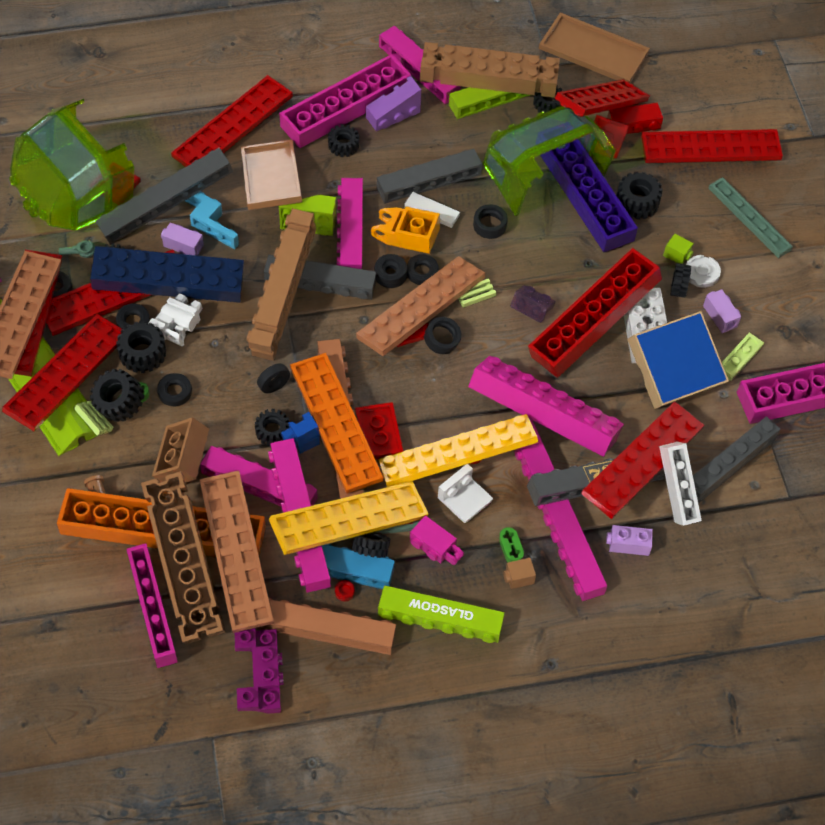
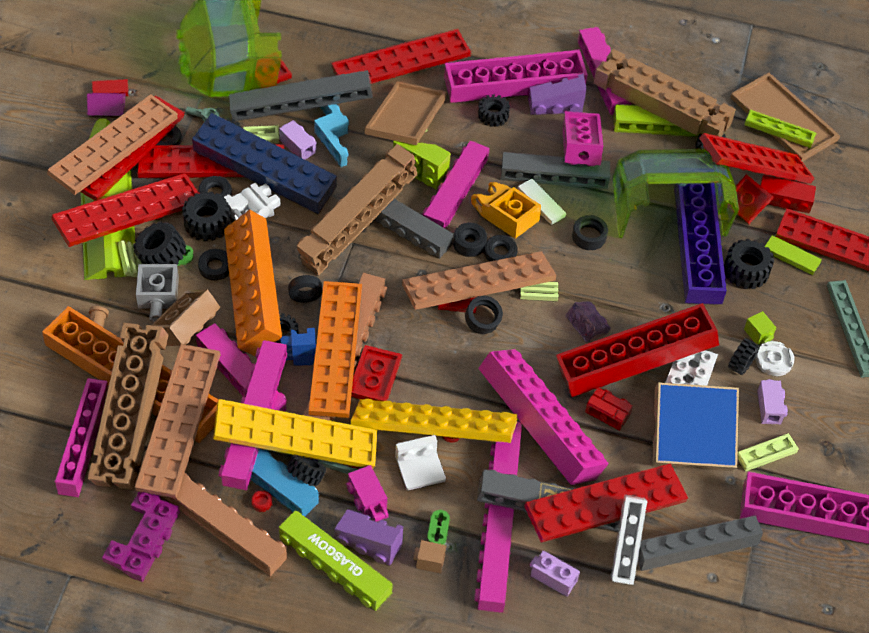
camera: 25 degrees right, 5 degrees down
(137, 435) = (156, 287): none -> light grey brick
(155, 246) = (265, 132): none -> yellowish green tile
(224, 393) = (252, 282): none -> orange brick
(440, 136) = (582, 135): none -> dark pink brick
(459, 580) = (369, 537): none -> medium lavender wedge
(594, 374) = (609, 408): none -> red brick
(598, 61) = (780, 128): none -> lime tile
(669, 172) = (793, 255): none -> lime tile

